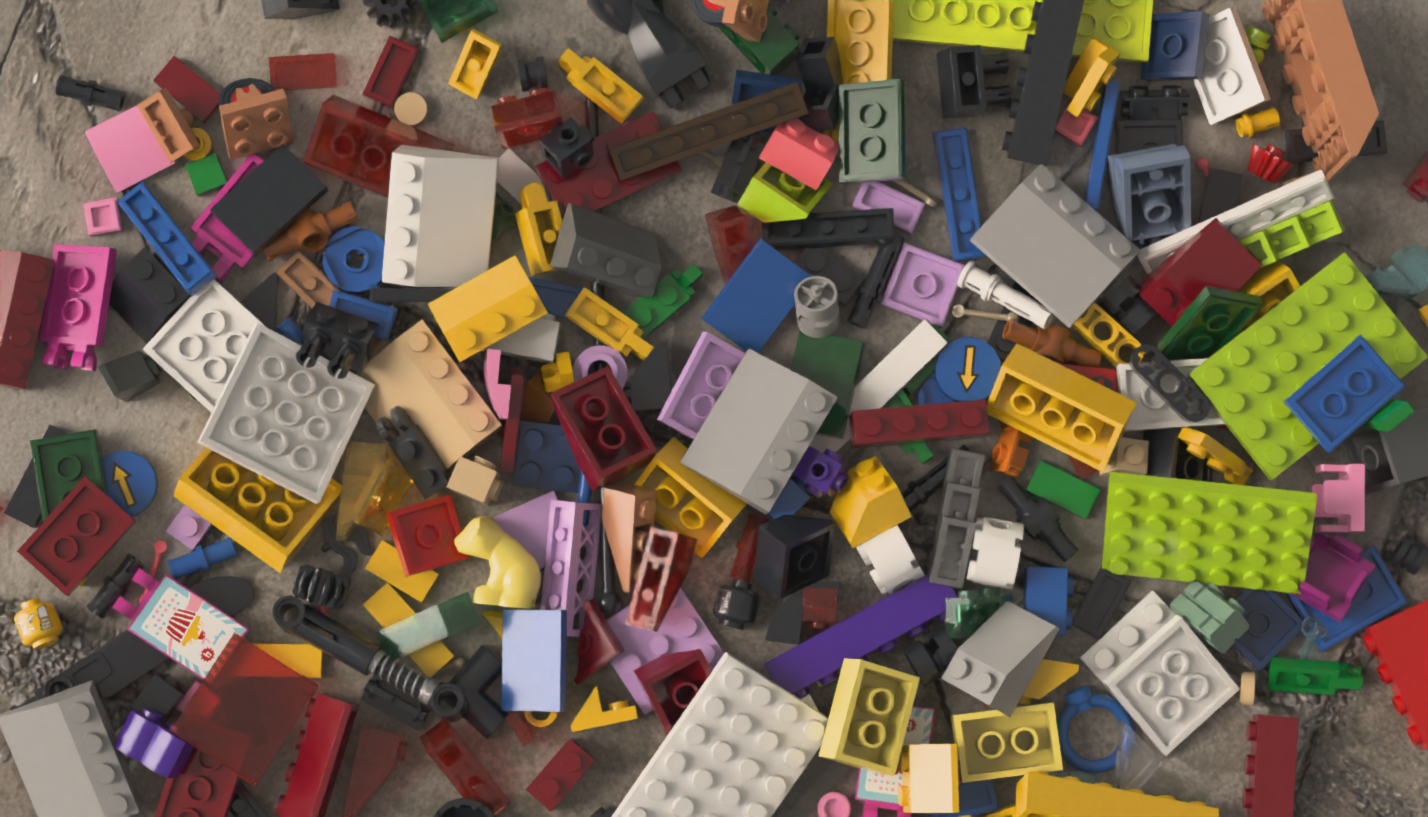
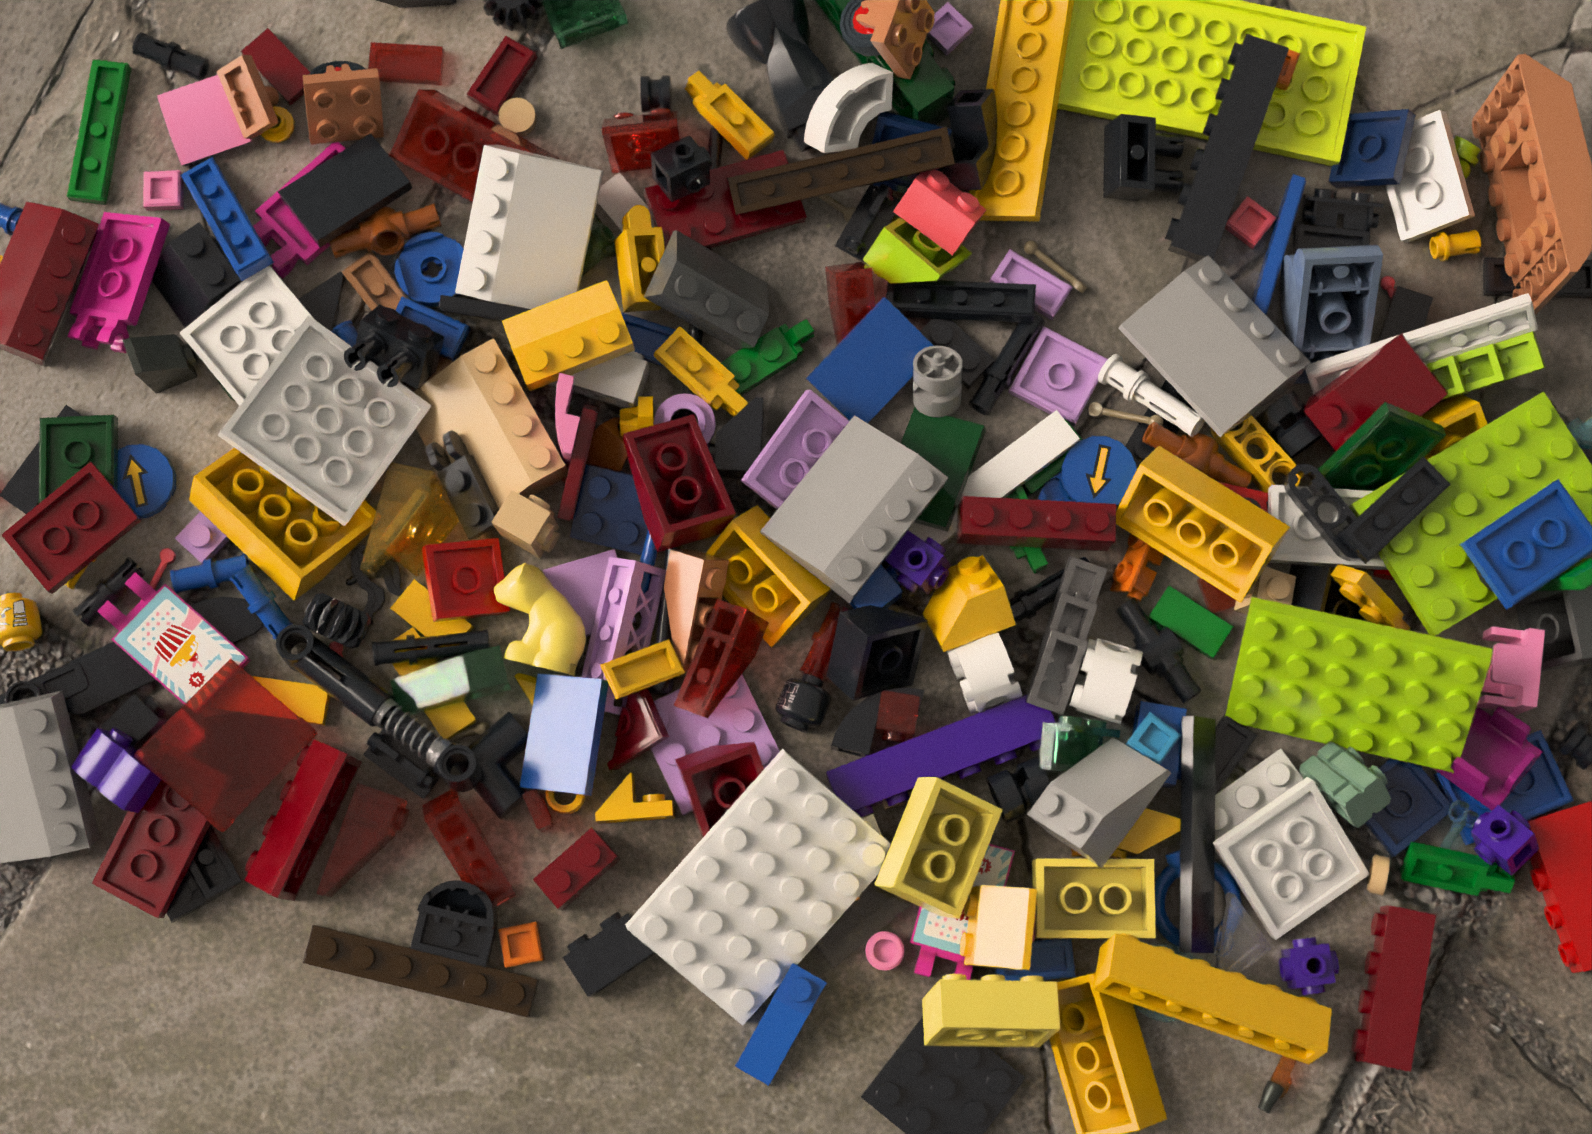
camera: 10 degrees right, 5 degrees down
(36, 170) = (99, 132): none -> green tile
(206, 174) = (283, 158): green tile -> none
(251, 578) = (260, 601): none -> blue pin
(367, 608) = (385, 651): none -> black pin
(475, 64) = (594, 73): yellow slope -> none
(594, 596) = (642, 669): none -> yellow tile
(707, 72) = (847, 107): none -> white brick
(871, 131) = (1023, 196): tile -> none
(958, 192) = (1111, 281): blue tile -> none
(1041, 599) = (1153, 738): none -> dark azure tile
(1089, 74) = (1275, 164): yellow bracket -> none
(1089, 676) = (1197, 834): none -> black tile
(1183, 774) = (1294, 968): none -> dark purple brick
(1225, 376) = (1394, 510): none -> black tile
(1268, 163) = (1463, 289): red piece -> none
(1349, 645) = (1504, 839): none -> dark purple brick

